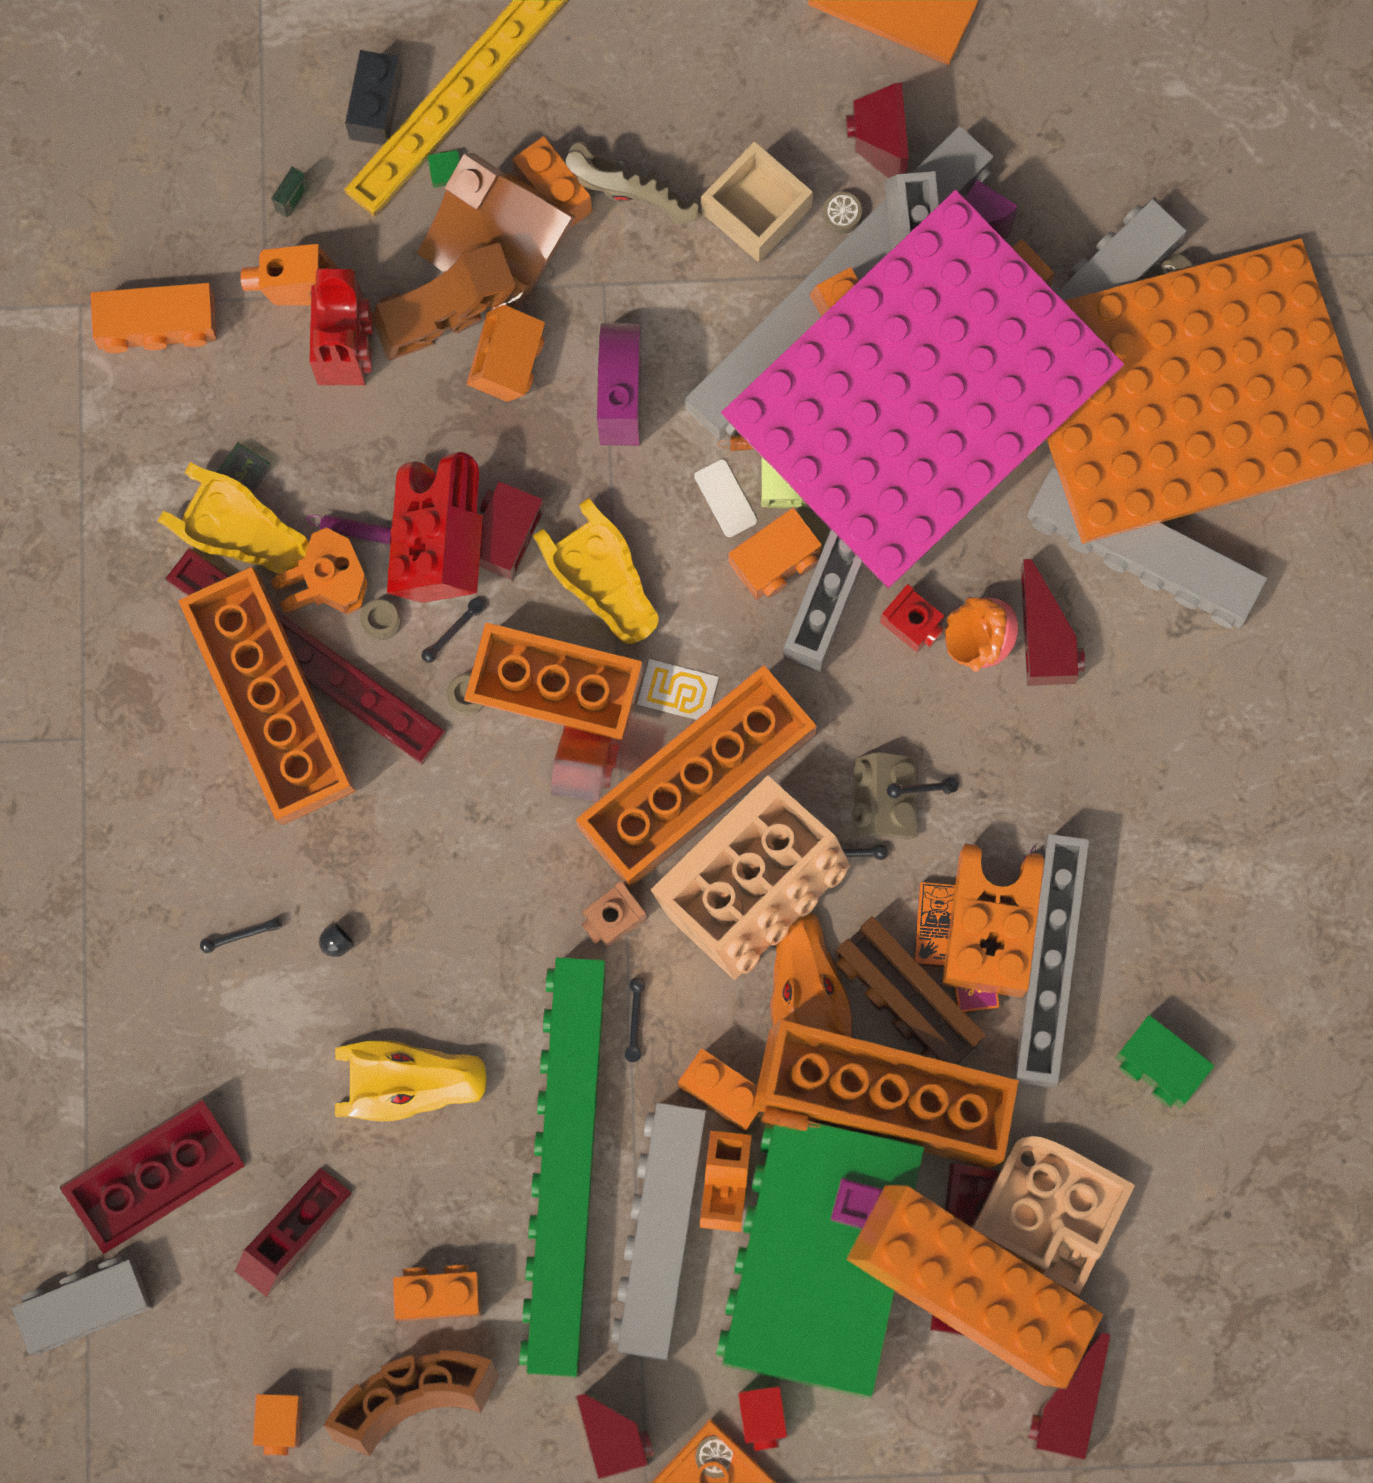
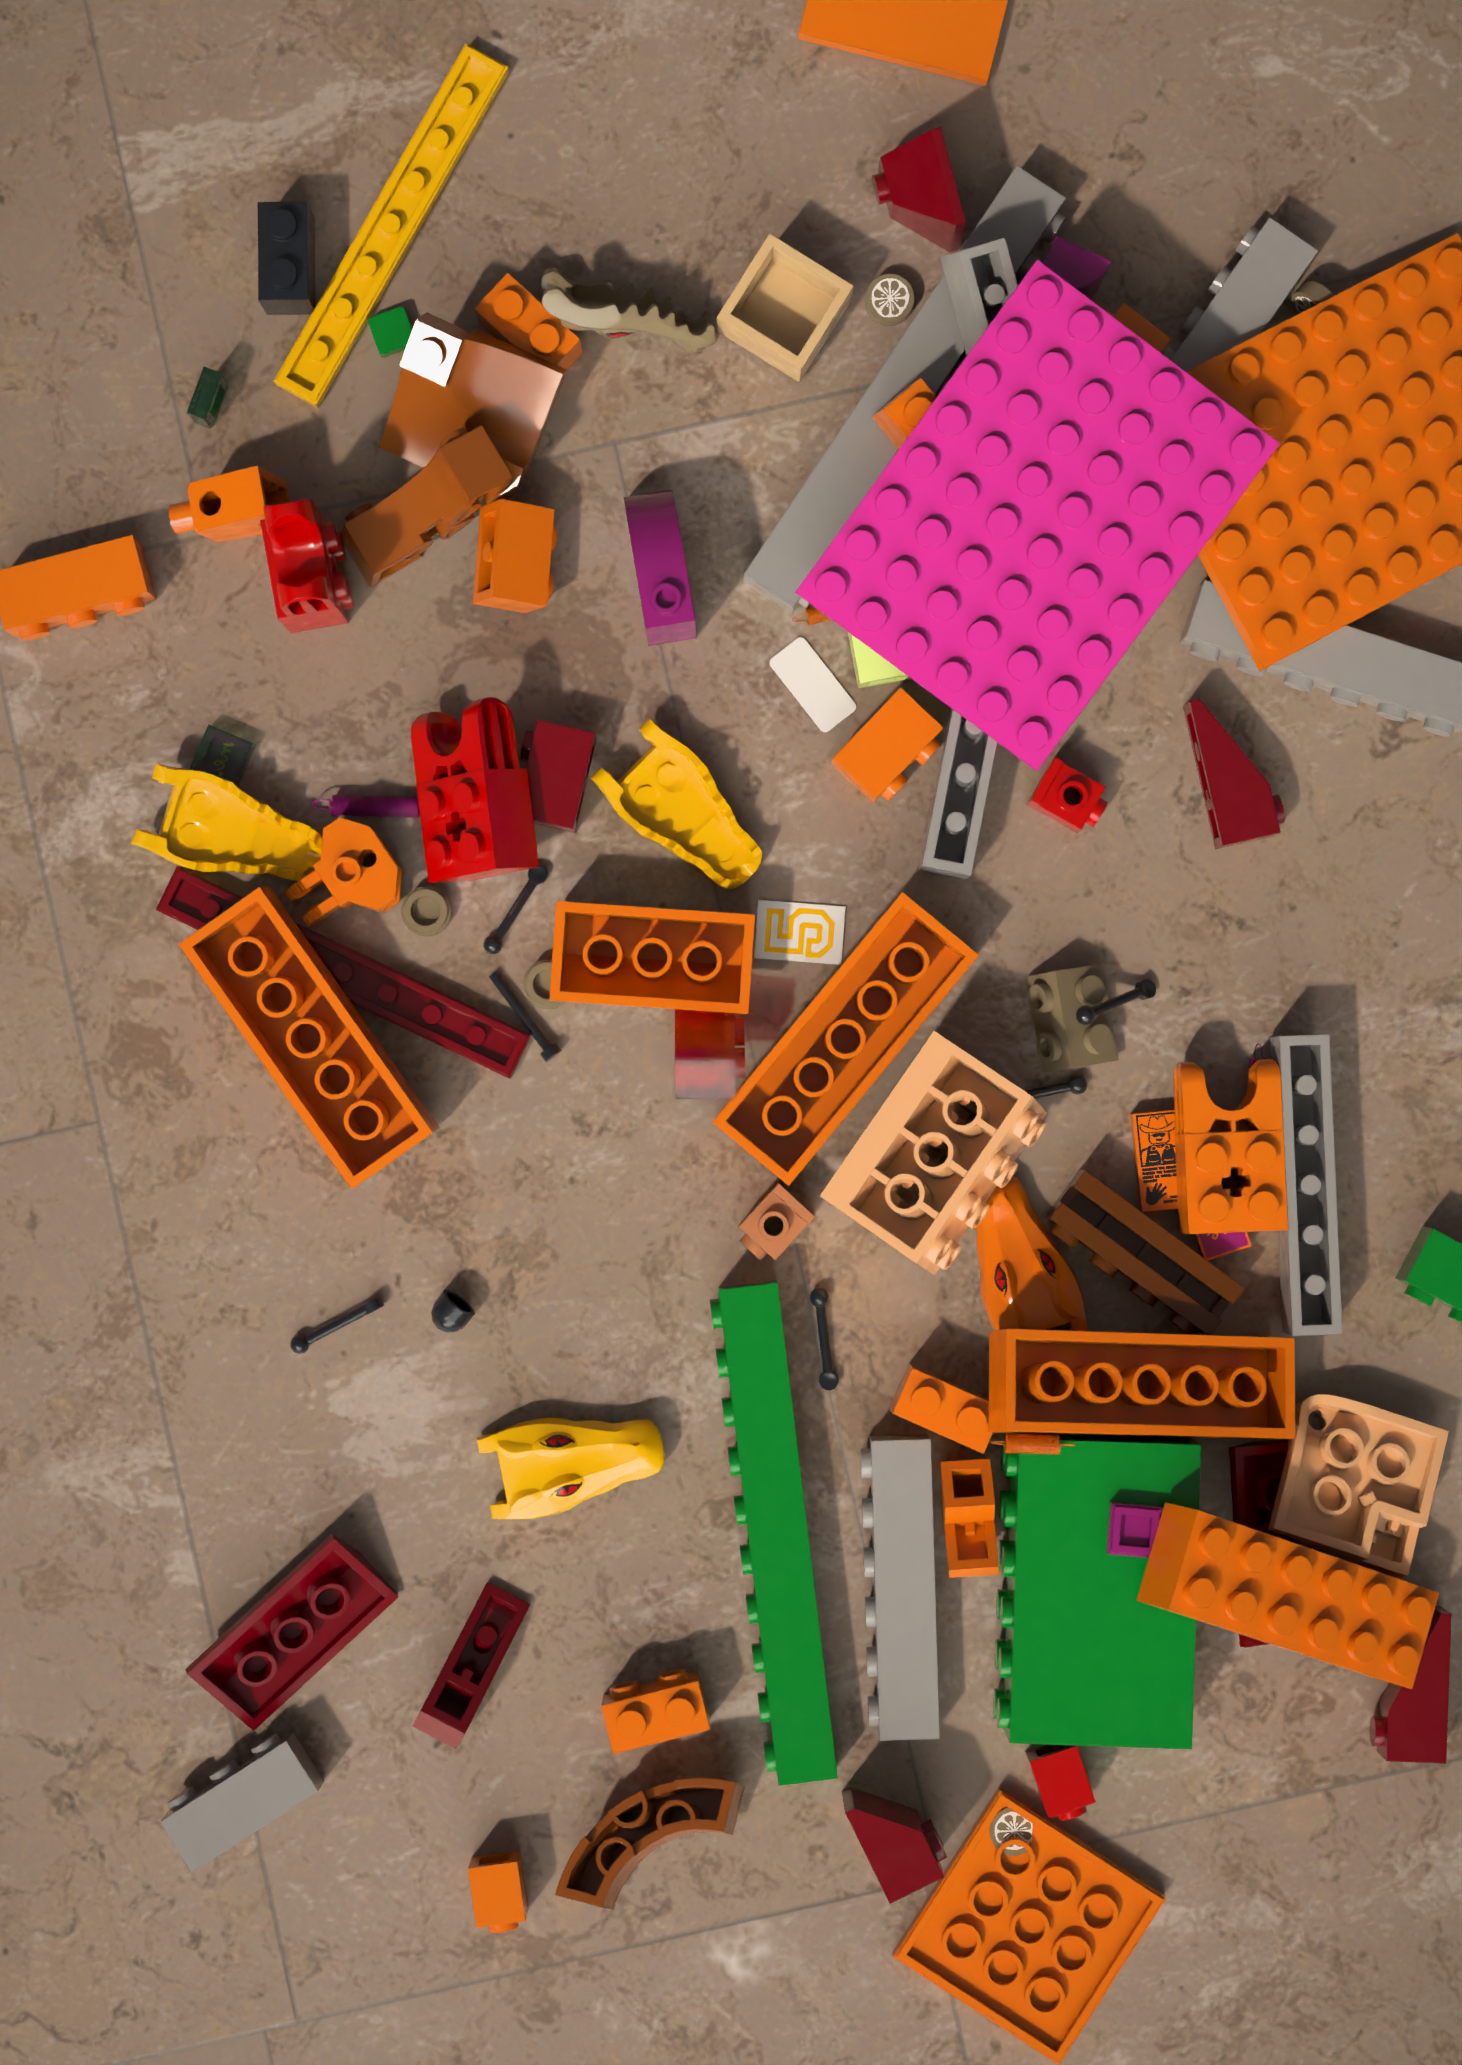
camera: 15 degrees left, 10 degrees up
(457, 747) = (549, 1050): none -> black piece
(981, 632) = (1153, 799): orange hair -> none

